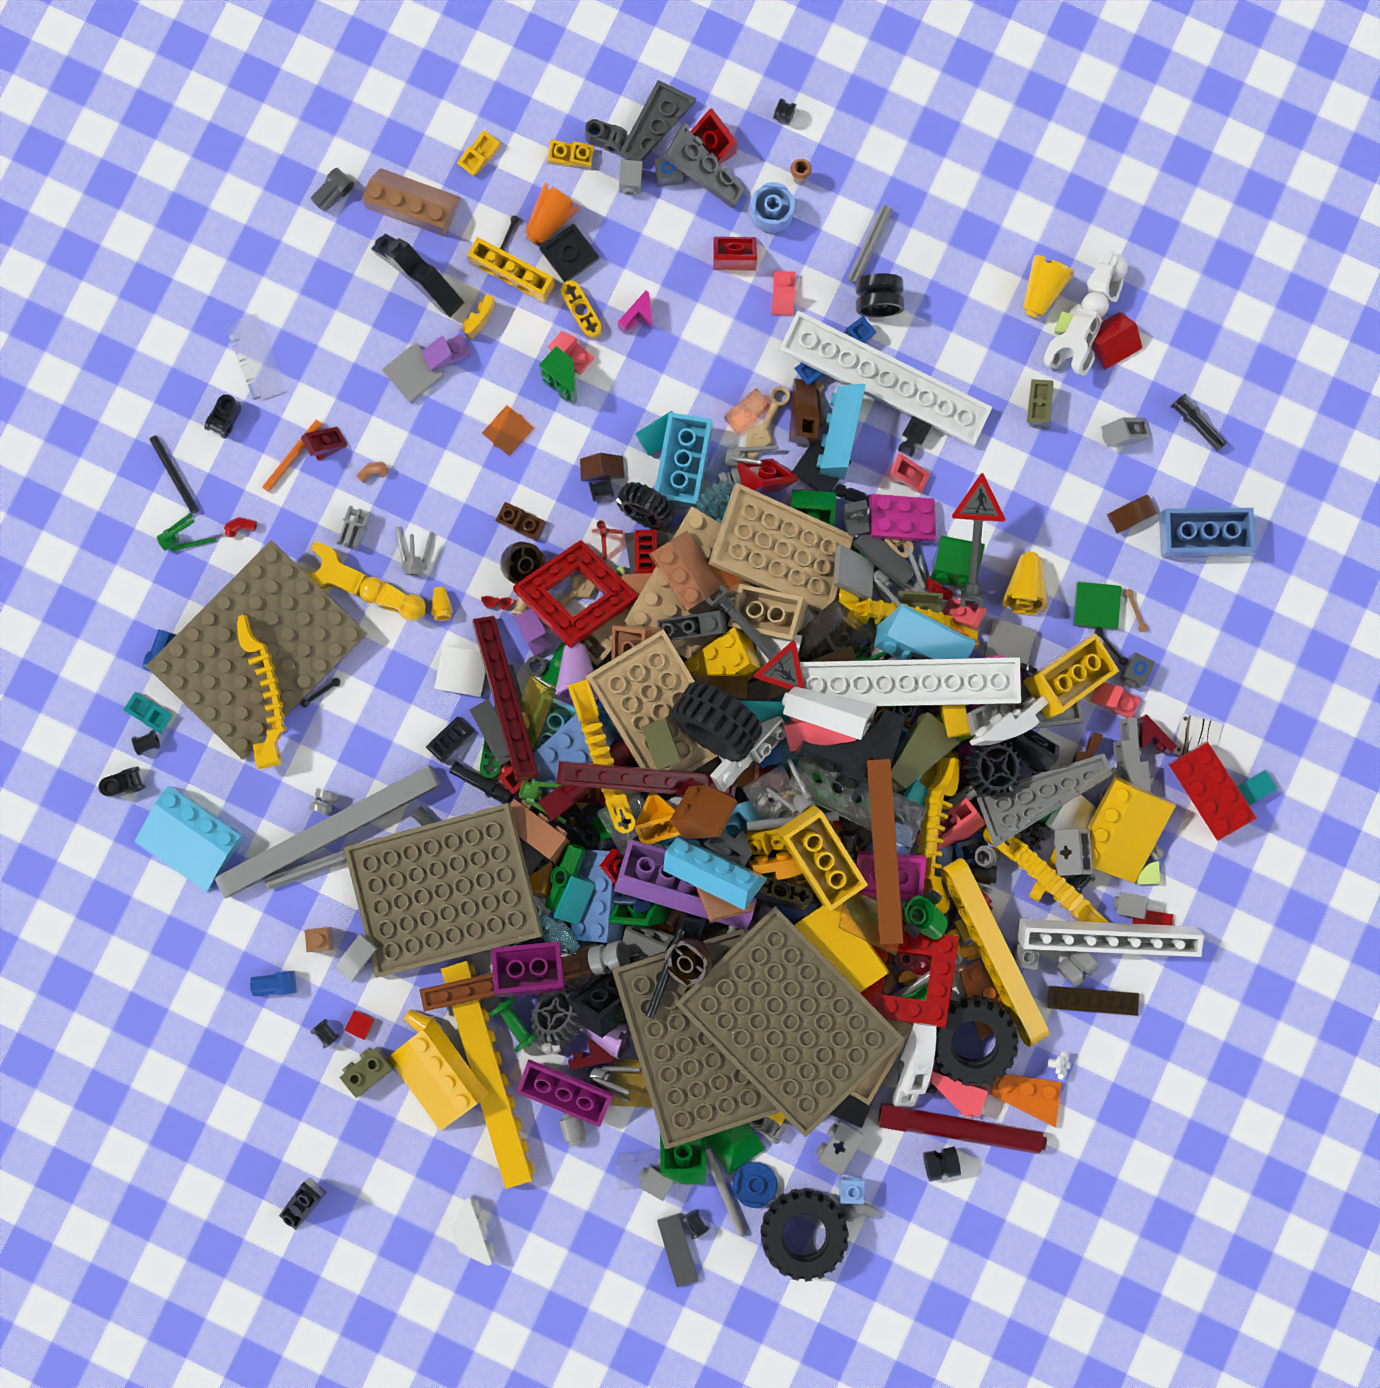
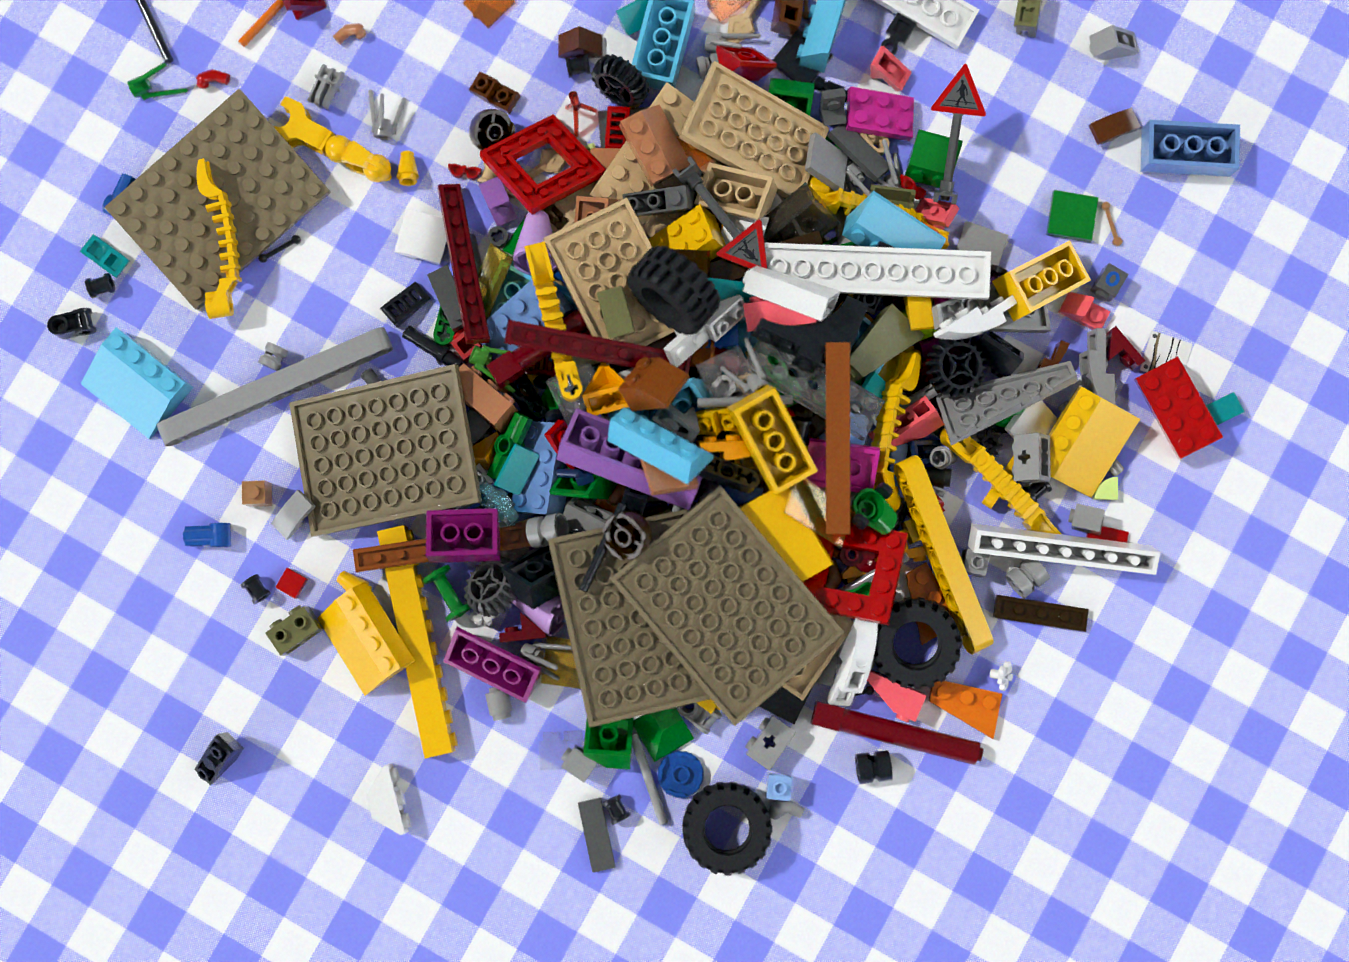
camera: 10 degrees right, 0 degrees up
(305, 870) = (249, 424): light grey axle -> none
(715, 499) = (691, 78): clear light blue gear -> none
(1027, 586) = (1002, 191): yellow cone -> none
(1122, 660) = (1094, 272): black hinge -> none
(1191, 414) = (1182, 31): black pin -> none

